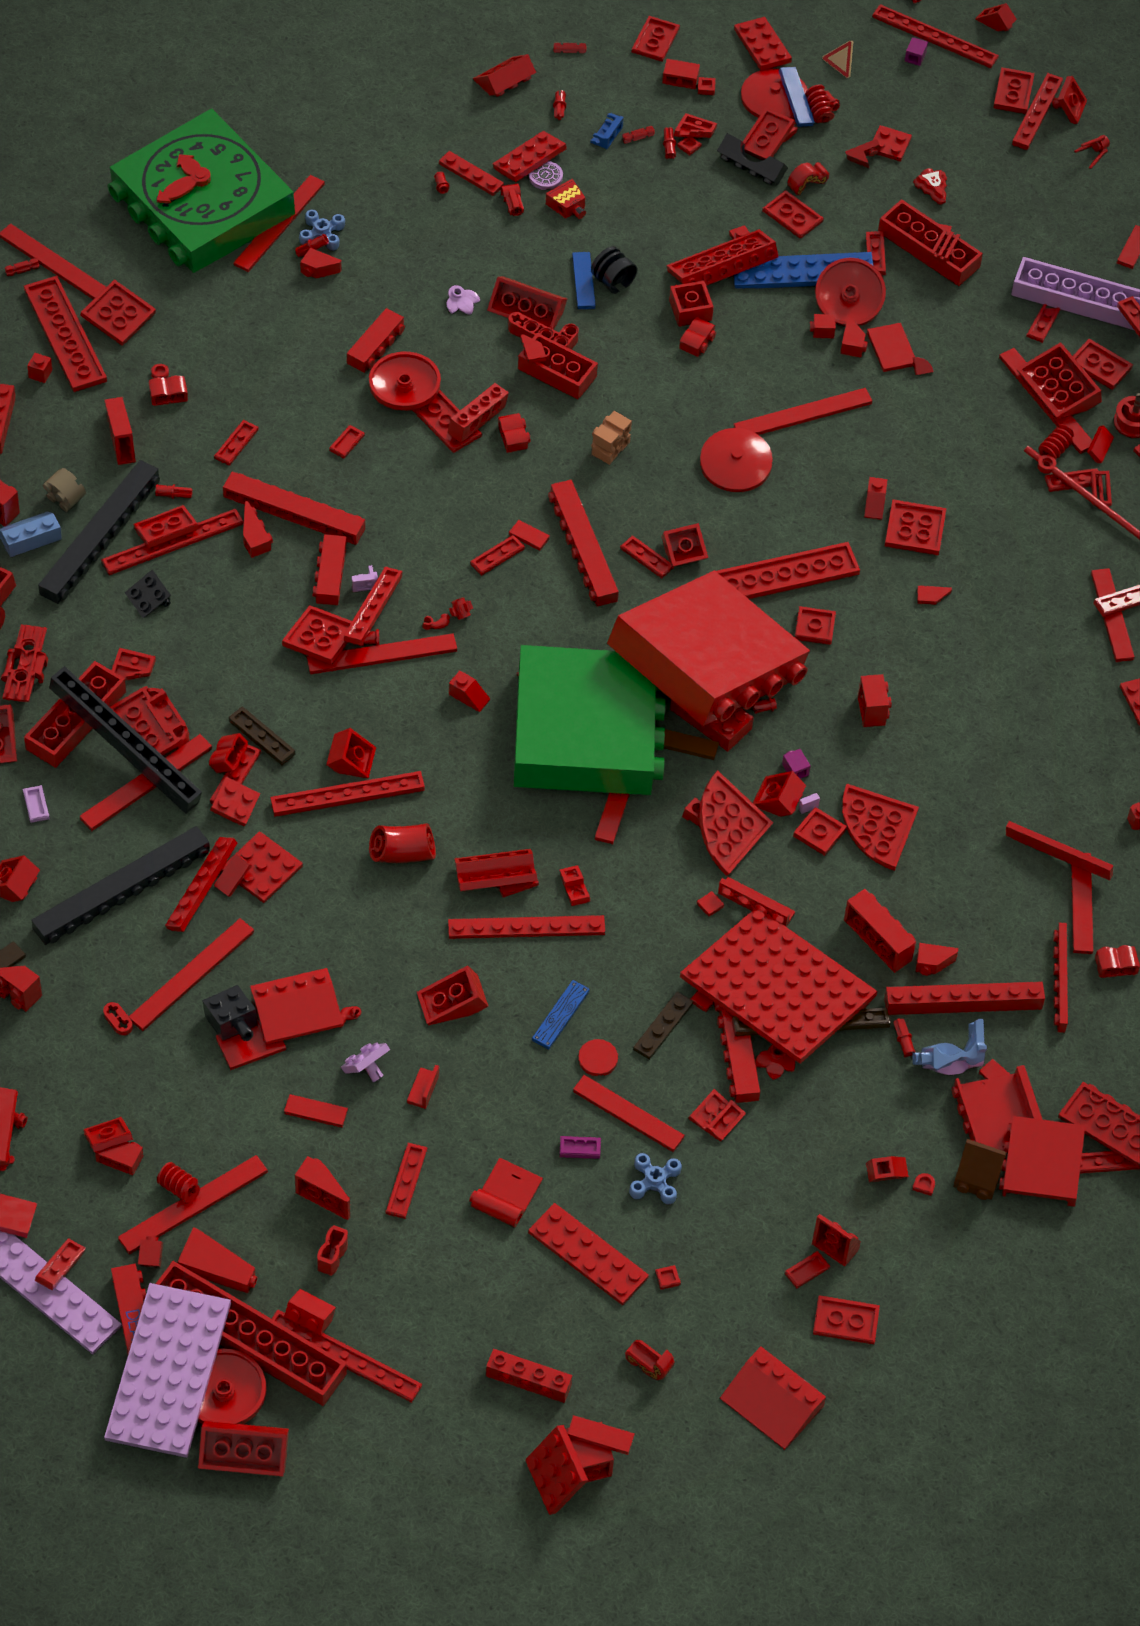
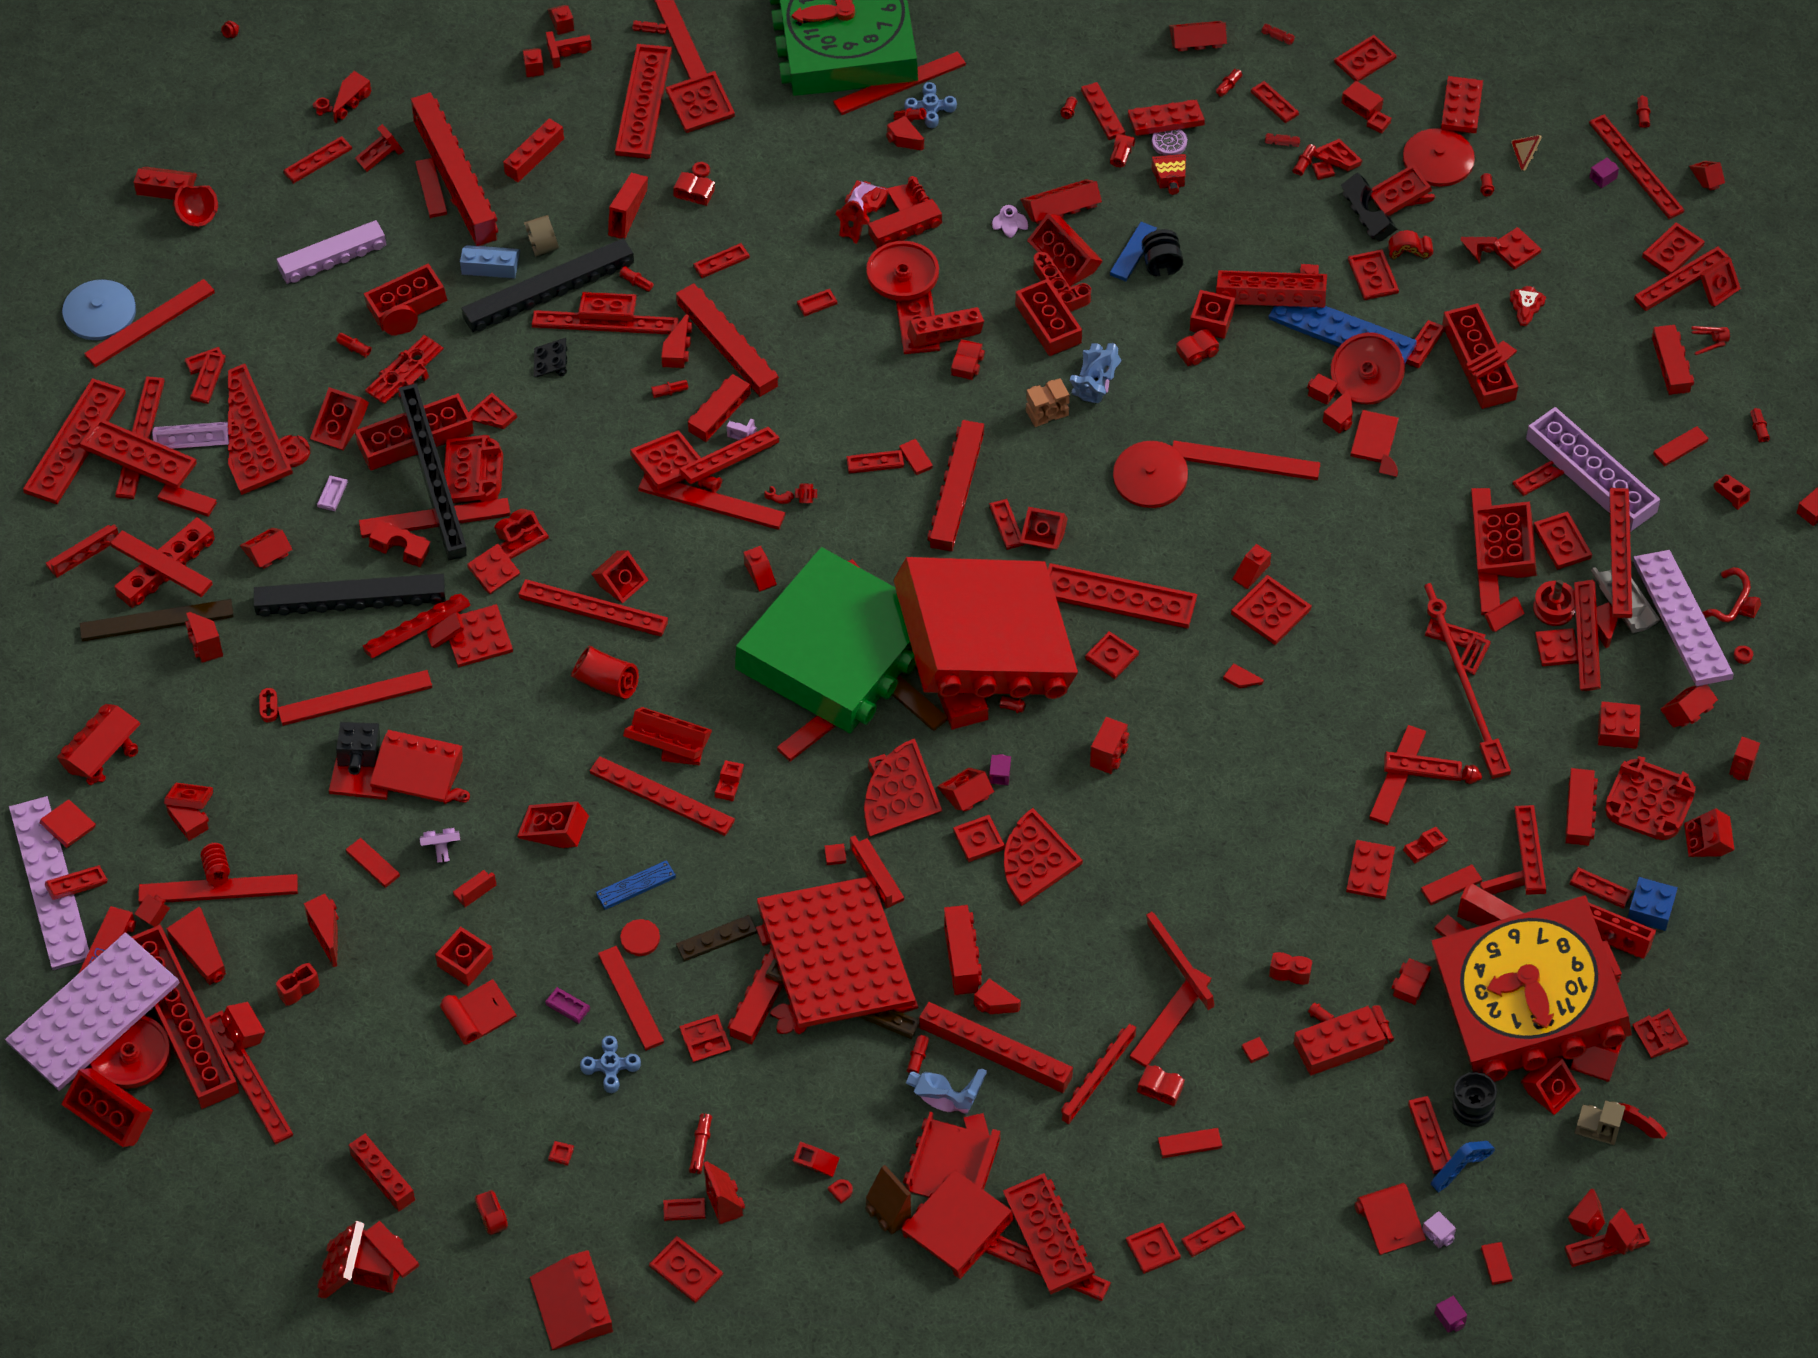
camera: 35 degrees right, 0 degrees up
(39, 367) = (599, 121): red brick -> none
(149, 815) = (387, 535): none -> red arch
(262, 735) = (557, 524): dark brown plate -> none
(273, 573) = (669, 388): none -> red axle
(329, 335) = (859, 202): none -> red hips
(360, 314) = (908, 194): none -> red hinge
(406, 1180) = (404, 958): red tile -> none
(462, 1150) = (464, 956): none -> red brick
(494, 262) = (1062, 200): none -> red slope
(533, 349) = (1031, 292): red tile -> none
(588, 1253) = (509, 1098): red plate -> none
(608, 105) = (1274, 102): none -> red tile
(608, 131) = (1256, 126): blue hinge -> none
(638, 409) = (1095, 364): none -> medium blue hips
(777, 1199) = (702, 1136): none -> red pin
(796, 96) = (1453, 166): tile -> none
(809, 803) = (986, 808): lavender tile -> none
(819, 104) = (1470, 182): red piece -> none
(1057, 441) = (1461, 592): red piece -> none
(1078, 179) = (1672, 359): none -> red brick

